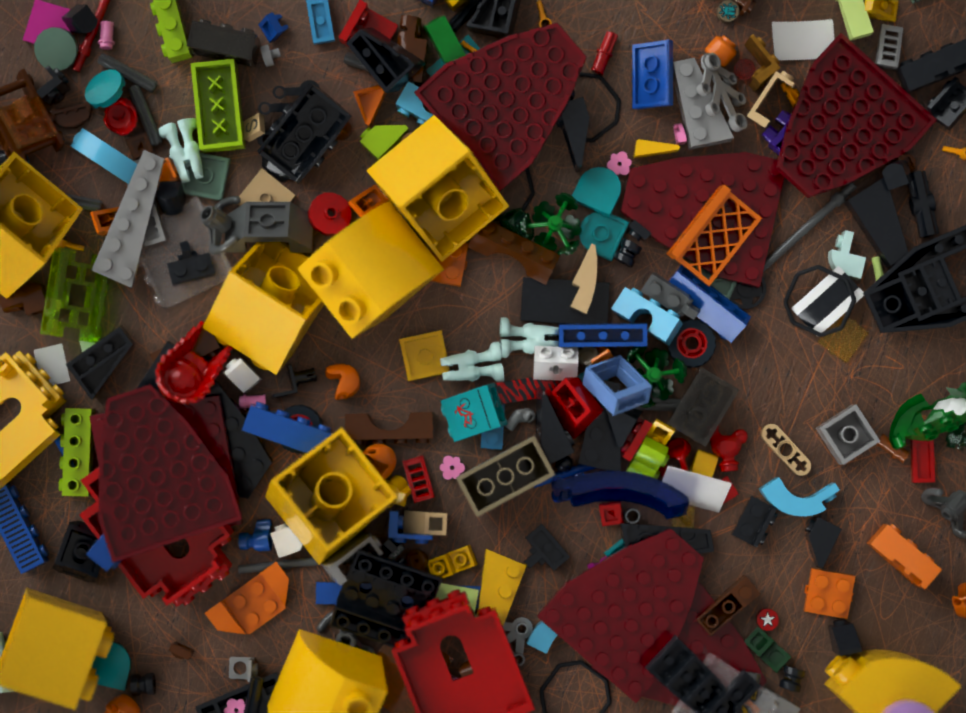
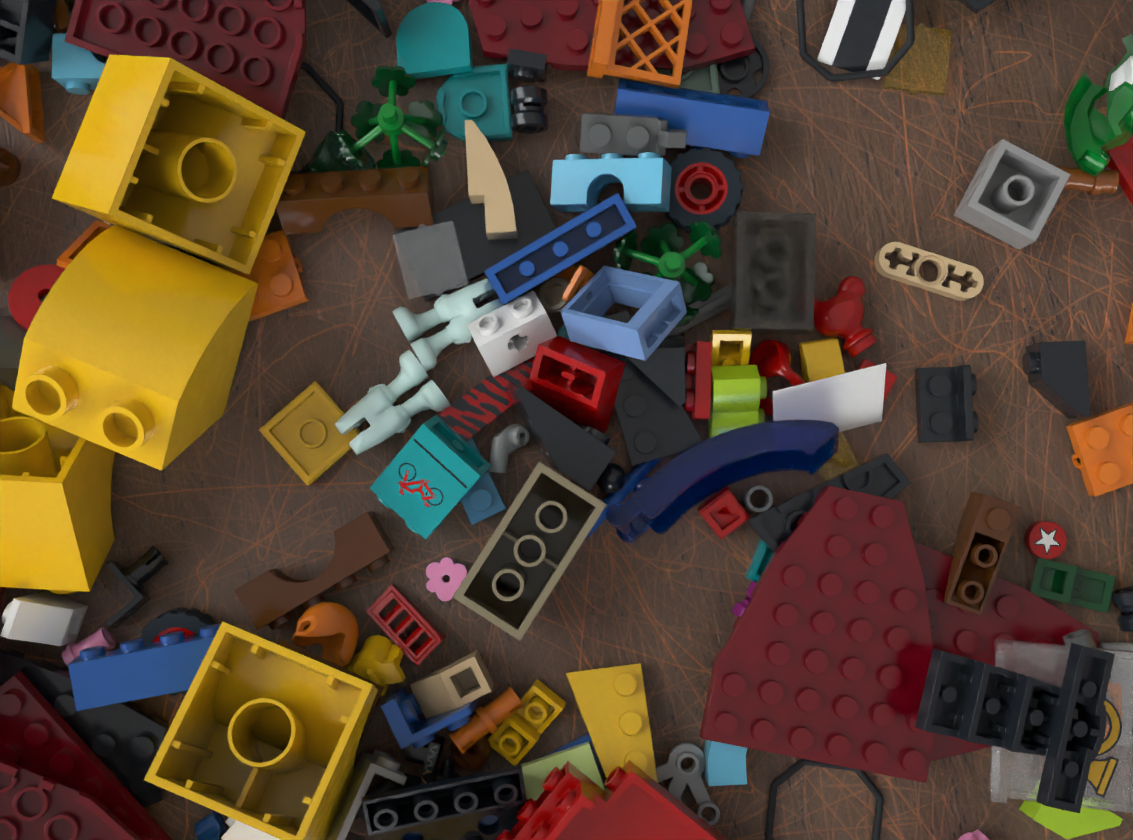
camera: 25 degrees left, 0 degrees up
(348, 380) = (211, 535): orange helmet -> none
(382, 138) = (55, 140): lime slope -> none
(434, 549) = (486, 720): none -> orange pin
(534, 302) = (430, 259): none -> clear piece
(545, 549) = (654, 623): black hinge -> none
(779, 497) = (958, 344): medium azure arch -> none

